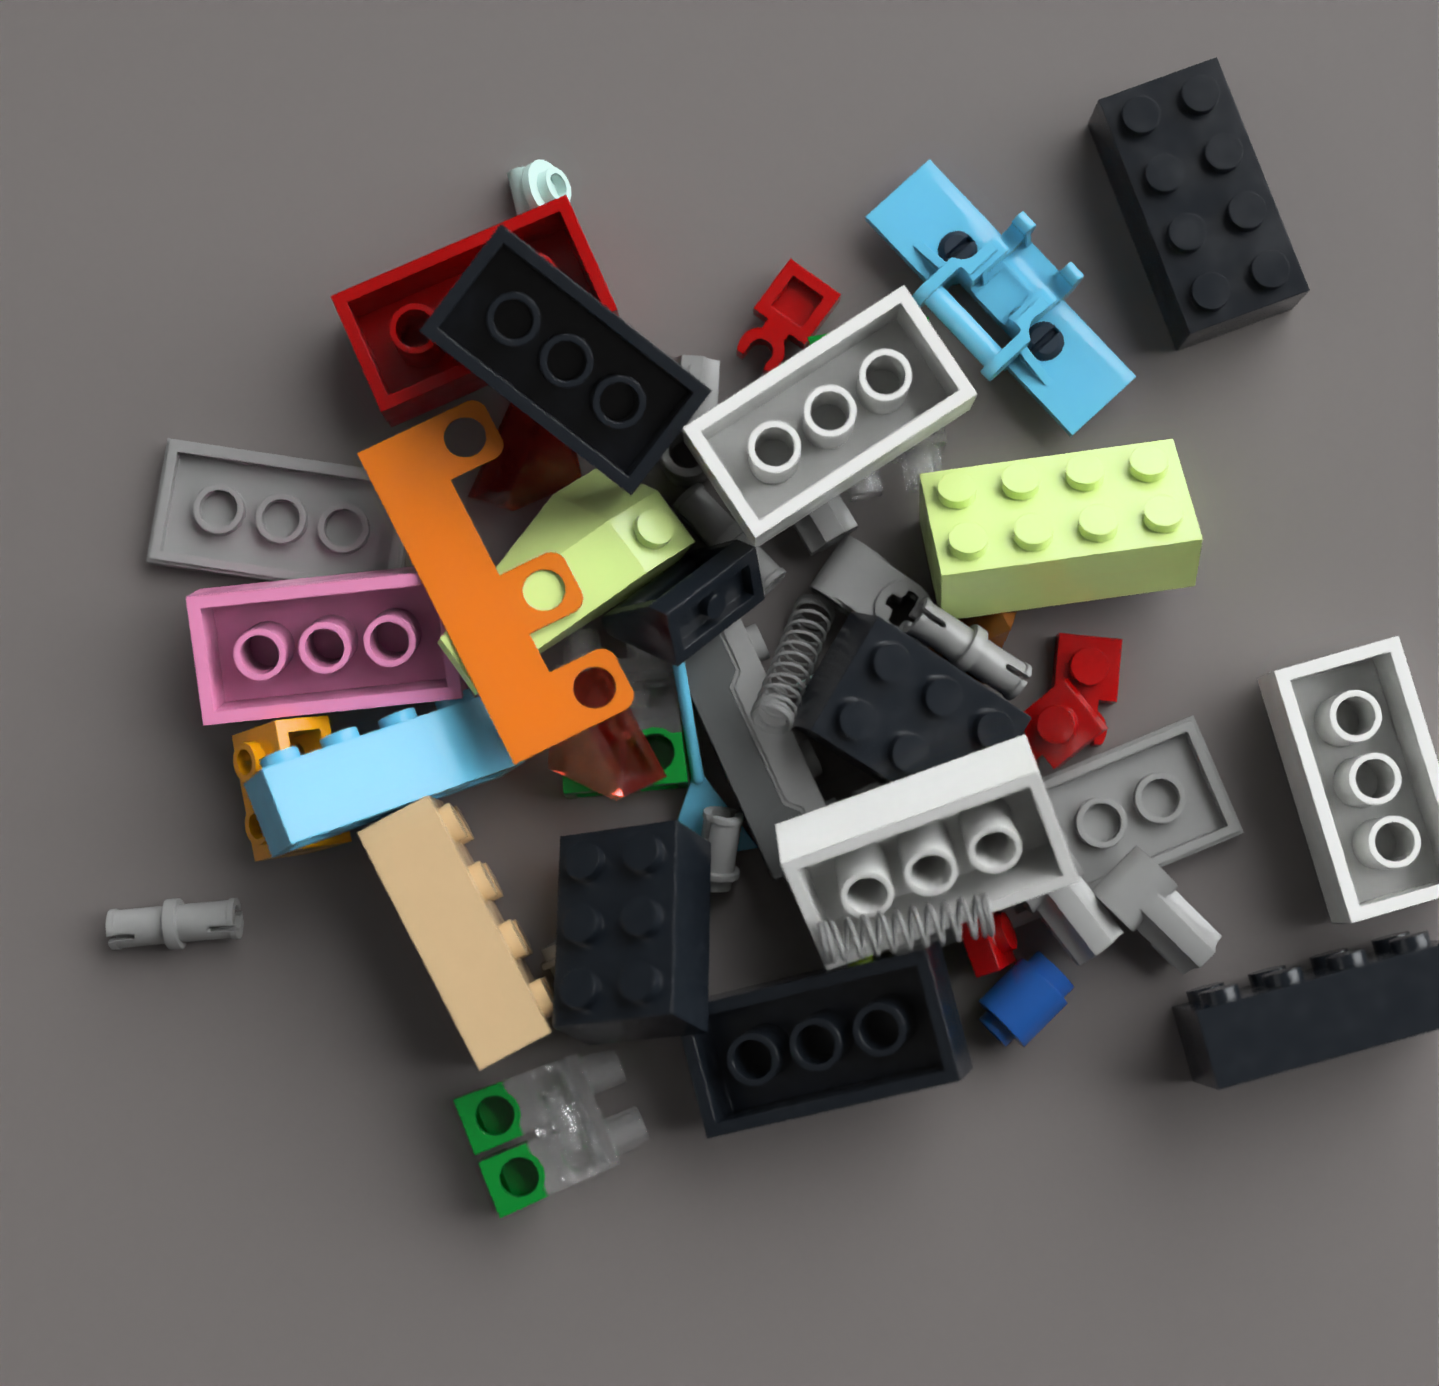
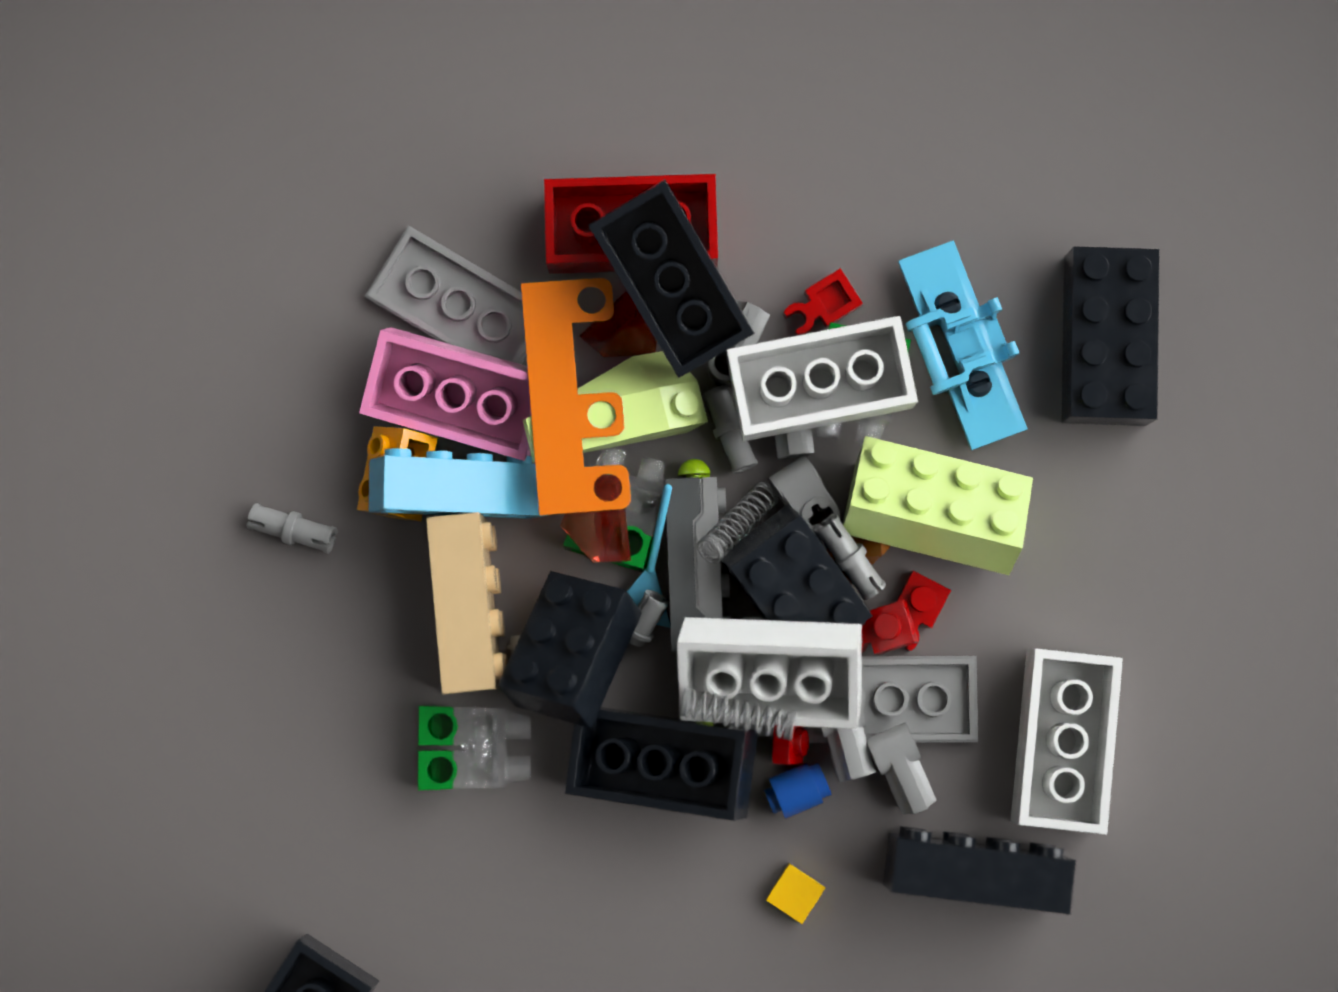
camera: 25 degrees right, 0 degrees up
(537, 185) = (701, 159): light aqua plate -> none
(689, 602) = (689, 458): black tile -> none
(1079, 1143) = (795, 893): none -> yellow tile

